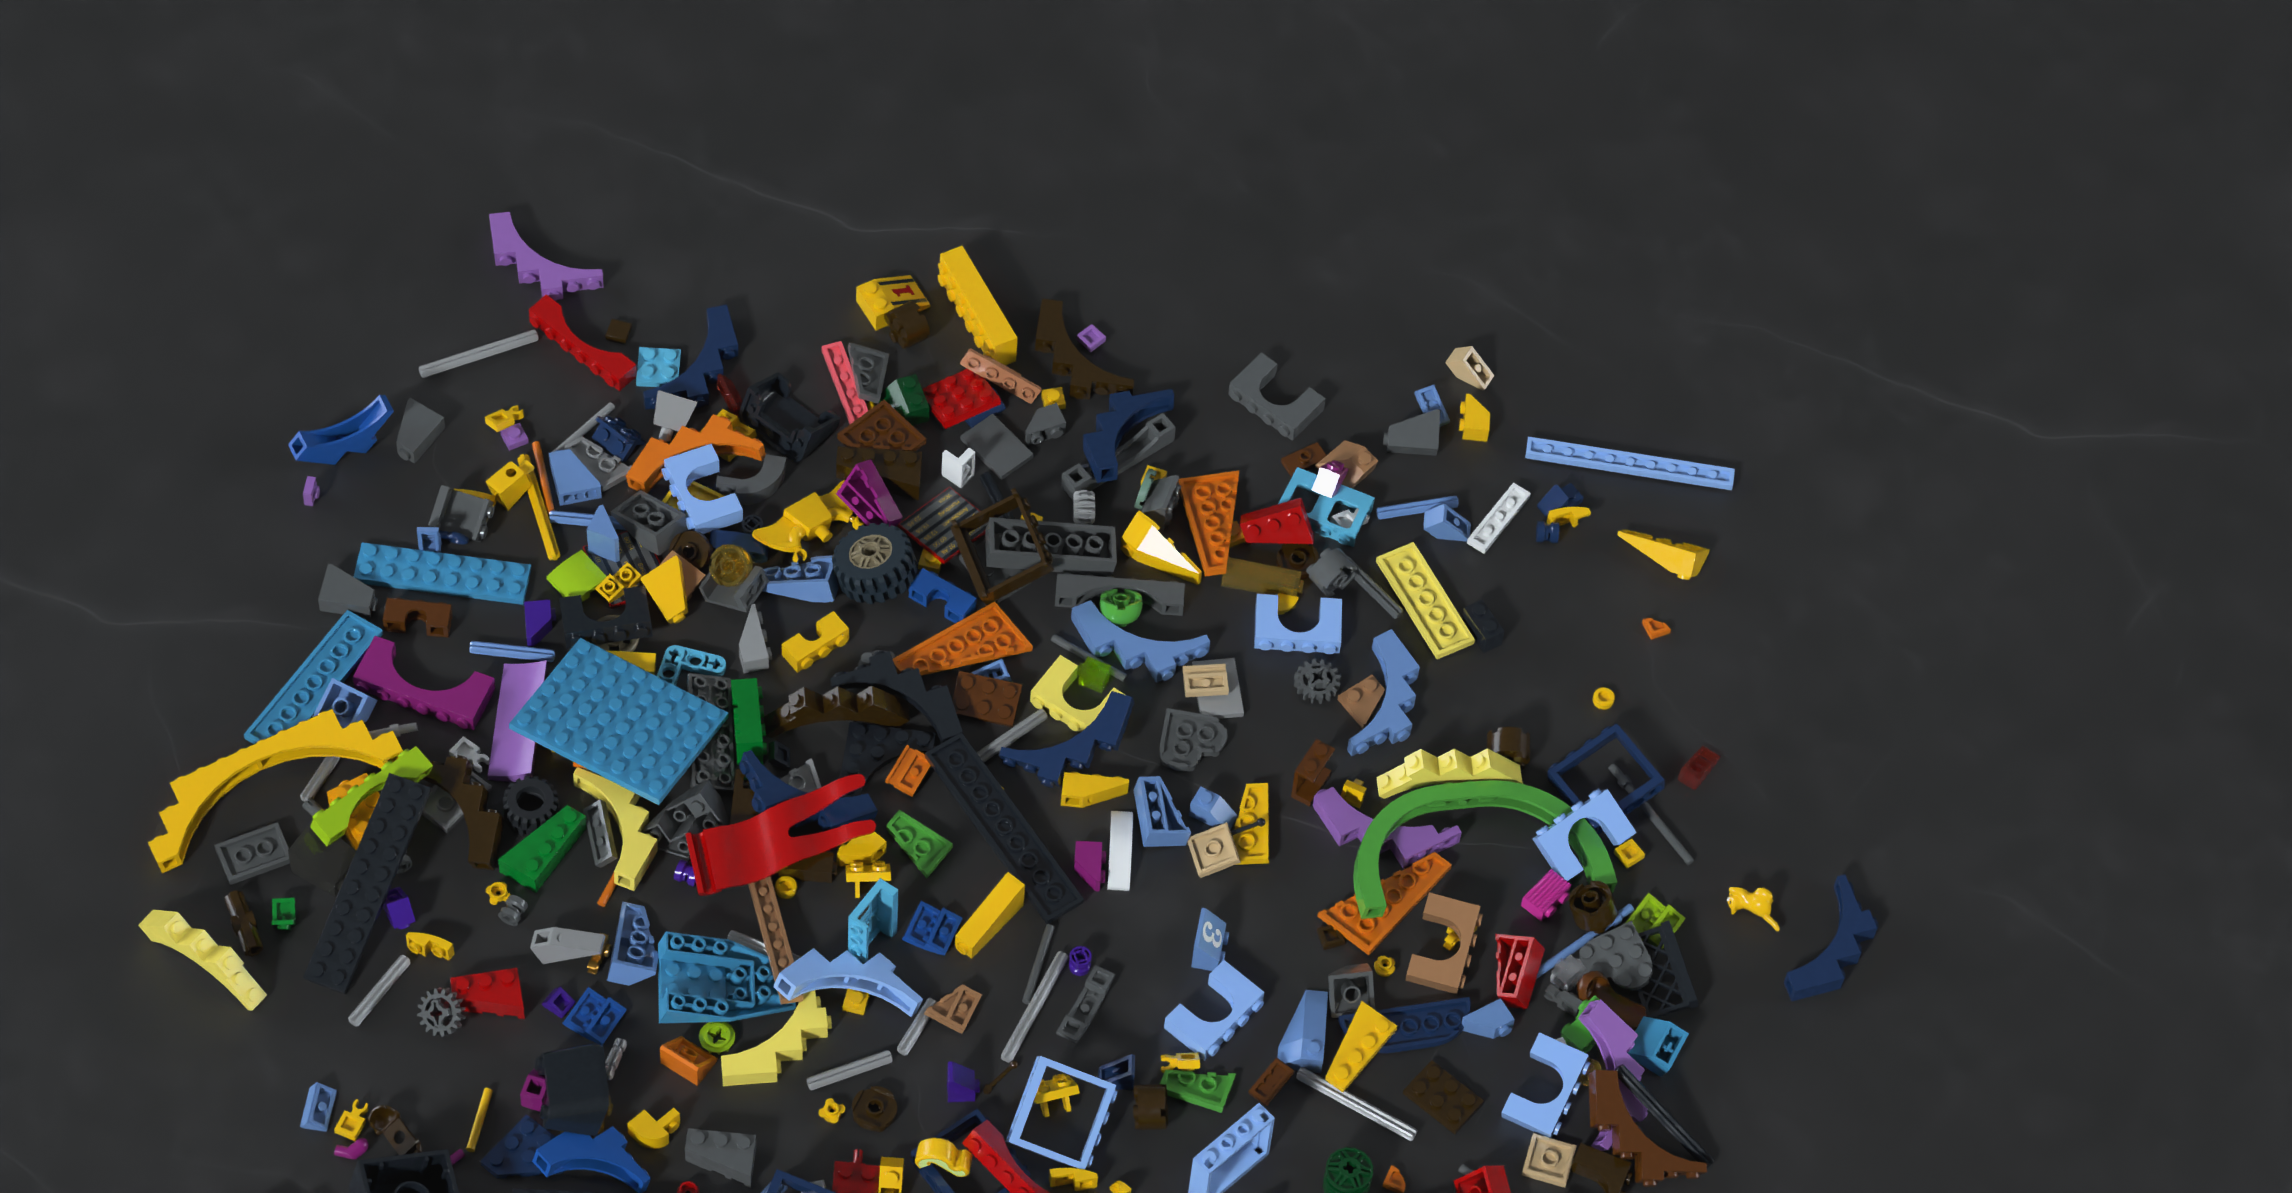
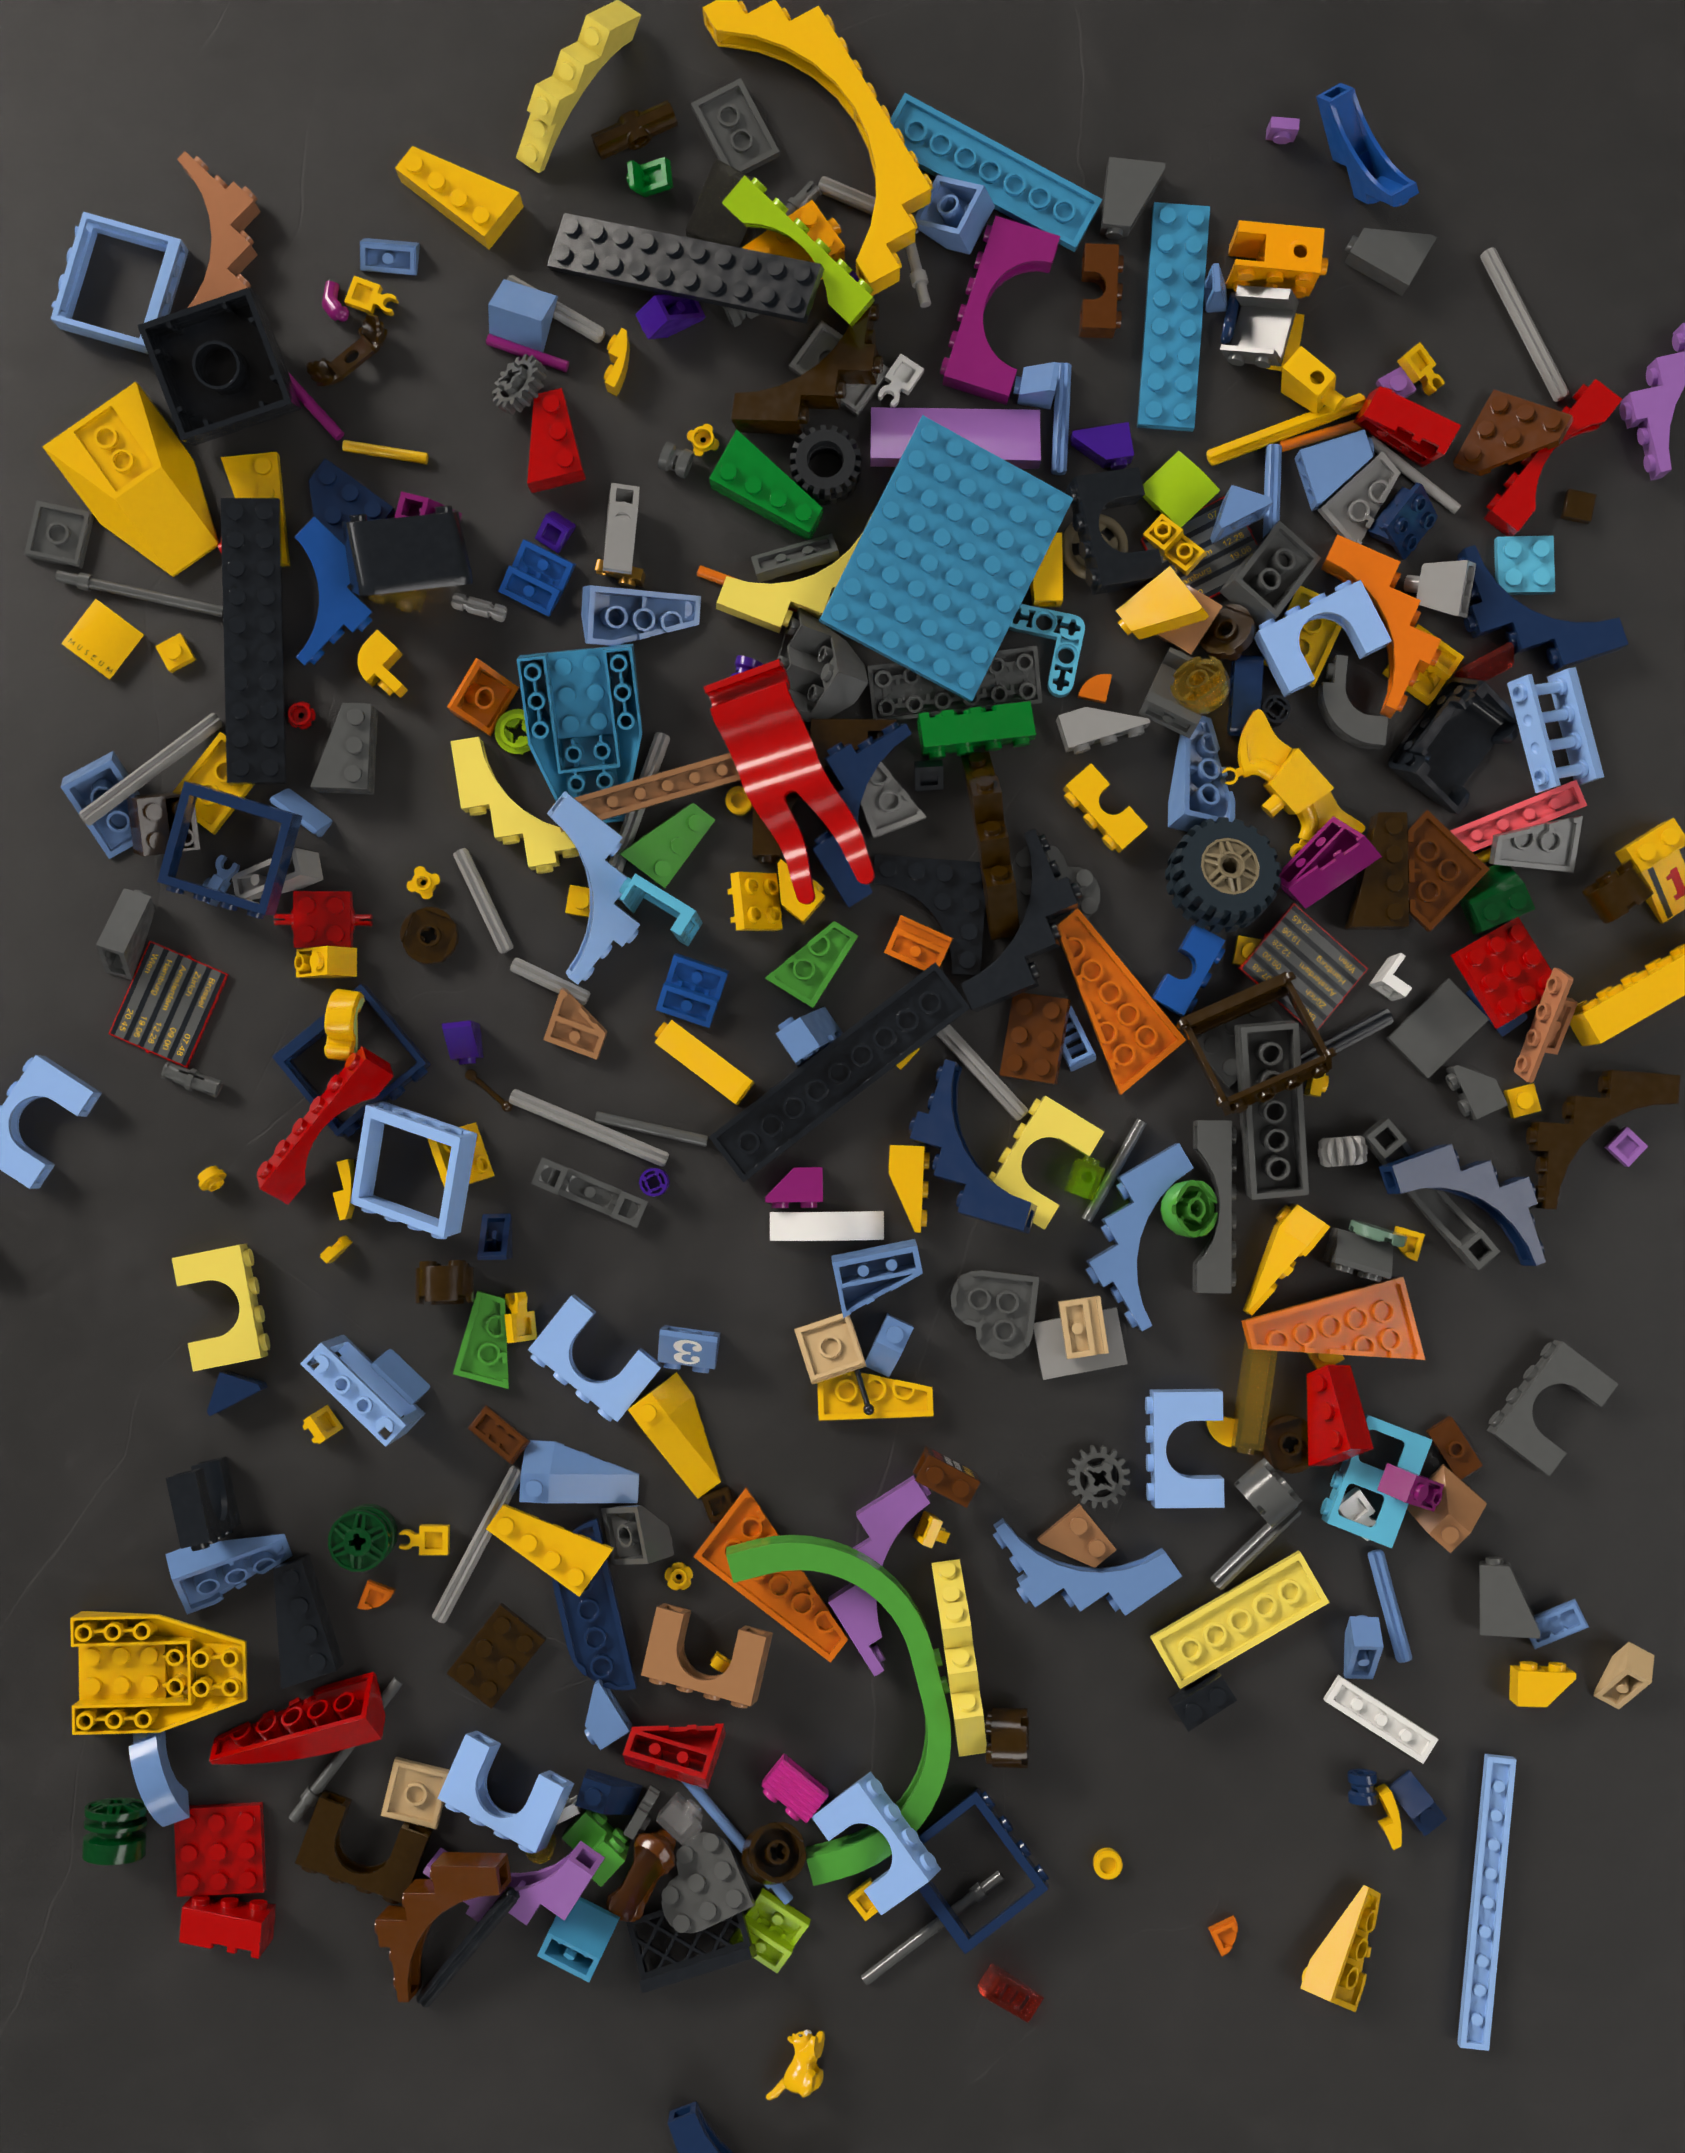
camera: 90 degrees right, 30 degrees up
(280, 1048) = (462, 196): none -> yellow wedge
(383, 1009) = (521, 314): none -> medium blue slope
(411, 1013) = (520, 350): none -> magenta bar
(412, 495) = (1283, 254): none -> light orange torso
(488, 655) = (1037, 385): none -> medium blue slope
(550, 425) = (1406, 426): none -> red wedge
(561, 365) = (1510, 432): none -> reddish brown plate
(723, 643) = (1096, 688): none -> orange tile
(785, 353) = (1574, 726): none -> light blue fence
(816, 932) = (669, 845): none -> bright green wing
(977, 844) = (808, 1034): none -> medium blue wedge
(1275, 960) = (675, 1428): none -> yellow wedge
(1351, 1133) = (431, 1539): none -> yellow plate
(1549, 1021) = (607, 1794): none -> dark blue slope

